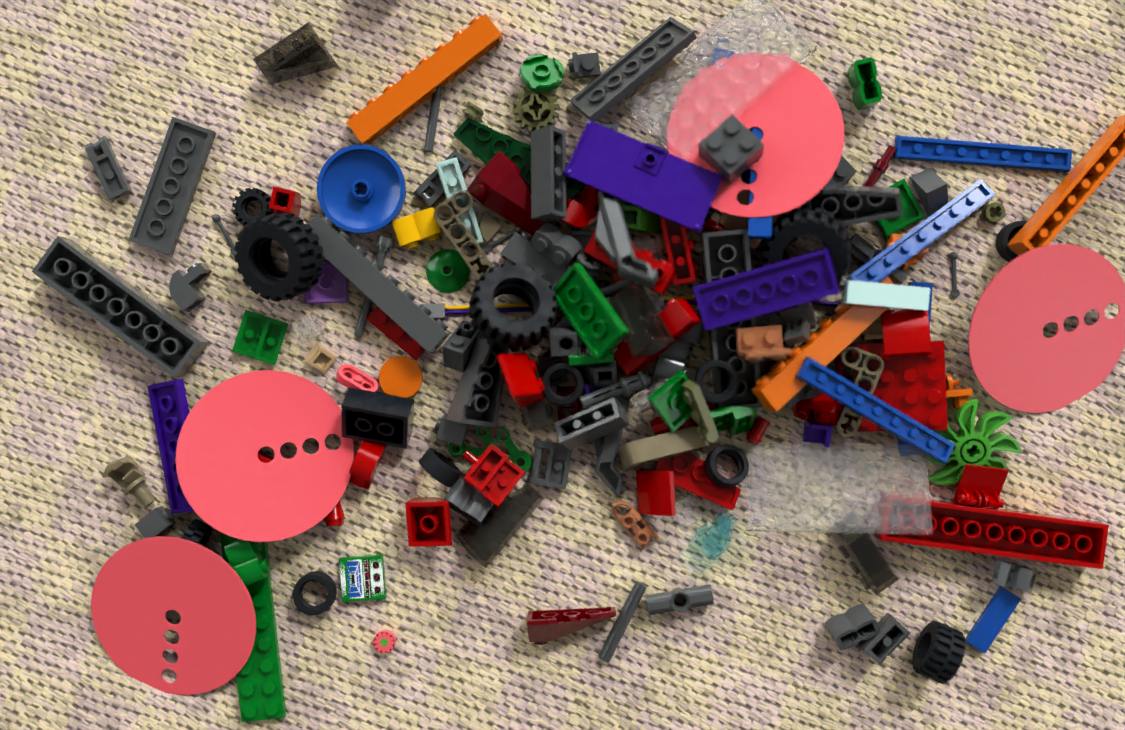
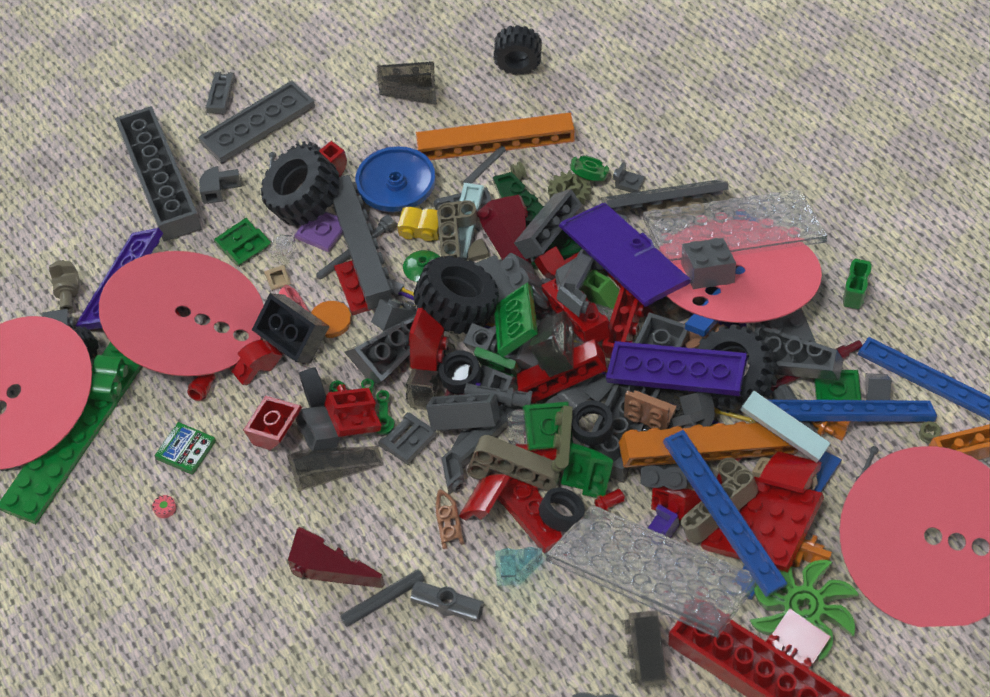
camera: 40 degrees right, 35 degrees down
(298, 598) = (142, 450): black tyre -> none
(450, 430) = (344, 370): dark grey brick -> none
(686, 511) = (501, 527): clear panel -> none

